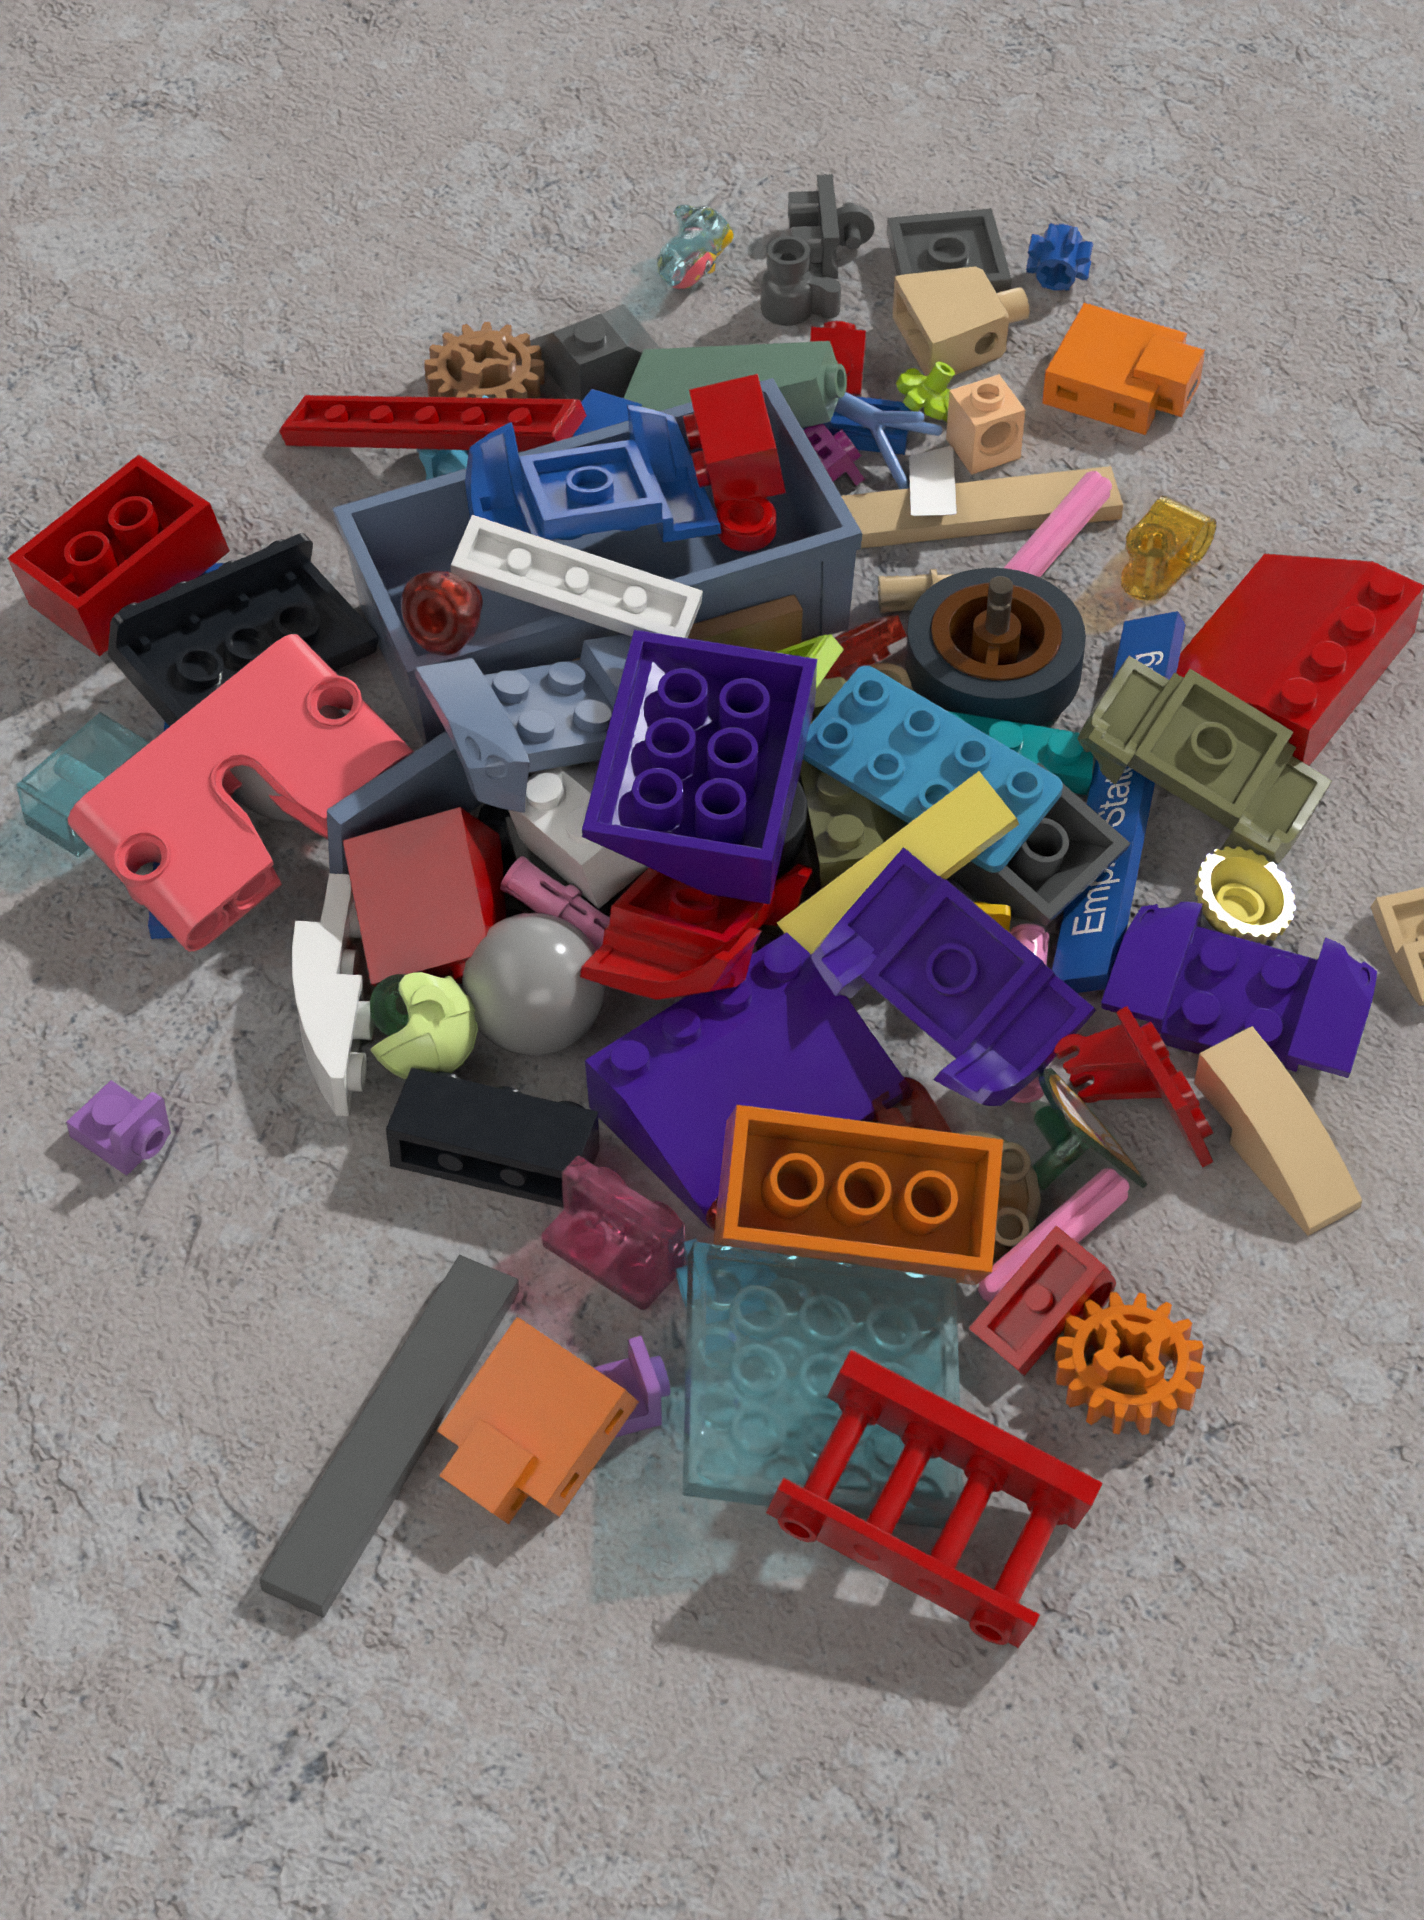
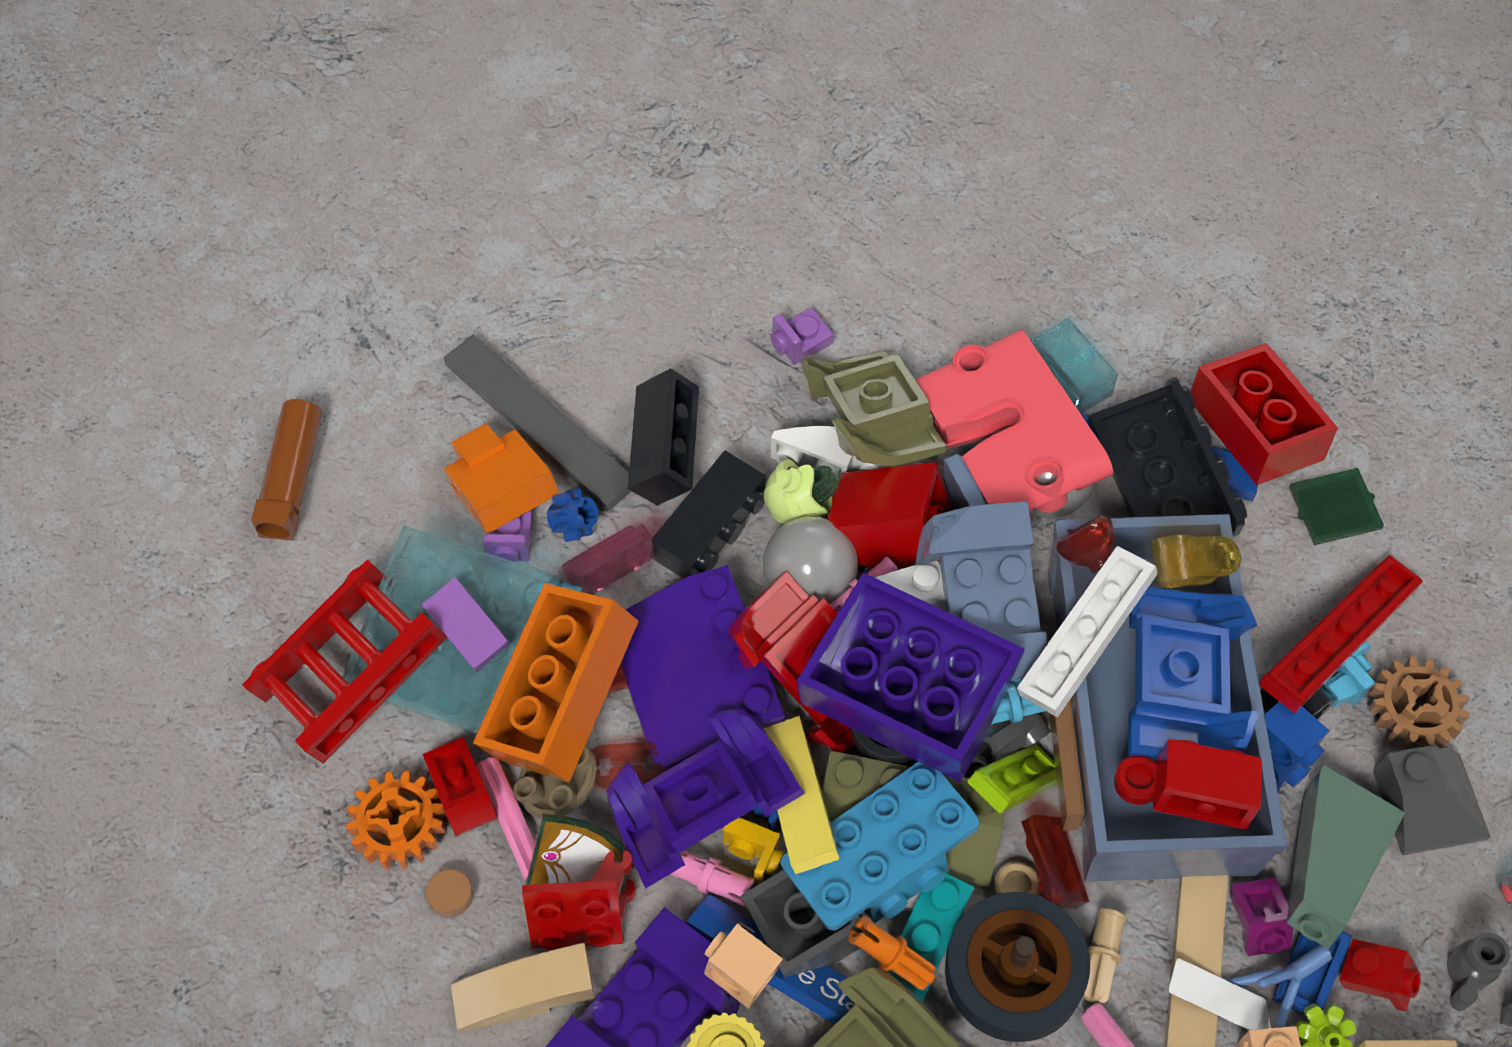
camera: 110 degrees right, 10 degrees up
(231, 488) = (1336, 506): none -> clear green piece
(237, 967) = (879, 407): none -> olive piece
(386, 1223) = (663, 437): none -> black brick
(435, 501) = (1193, 560): none -> clear yellow piece
(559, 1305) = (572, 515): none -> blue gear
(625, 1752) = (287, 470): none -> dark orange piece
(814, 1345) = (466, 624): none -> medium lavender tile
(1055, 736) = (892, 953): none -> orange axle
(1146, 874) = (741, 964): none -> light nougat brick
(1193, 1271) = (449, 893): none -> medium nougat piece

